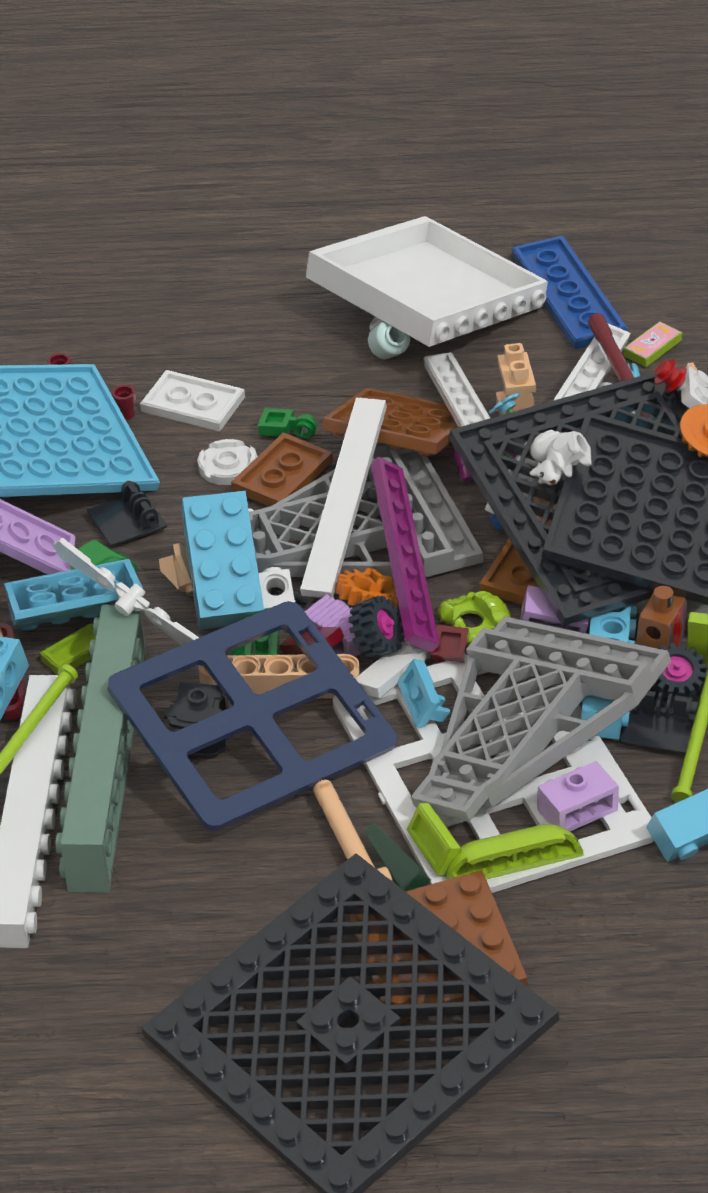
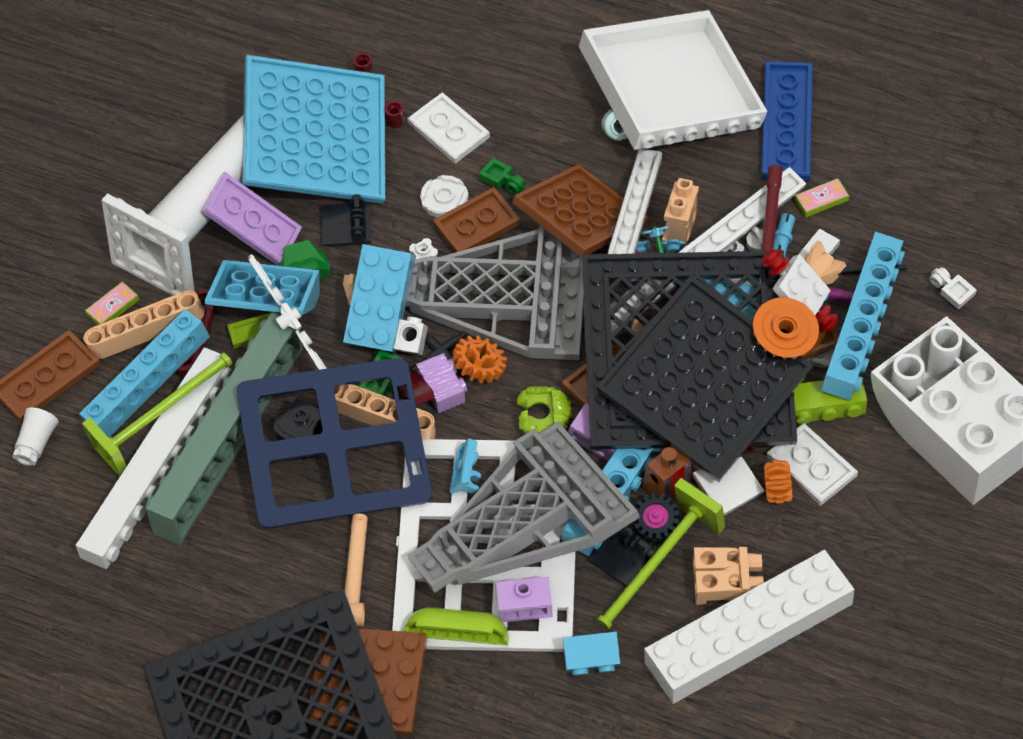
camera: 25 degrees right, 15 degrees up
(343, 498) = (495, 272): white tile -> none
(376, 627) = (460, 398): black wheel -> none
(389, 669) = (455, 434): white tile -> none
(401, 866) = (378, 604): clear green piece -> none
(404, 555) = (512, 341): magenta plate -> none
(433, 838) = (406, 594): lime tile -> none
(452, 643) = (509, 428): dark red tile -> none
(558, 454) = (650, 308): white animal -> none

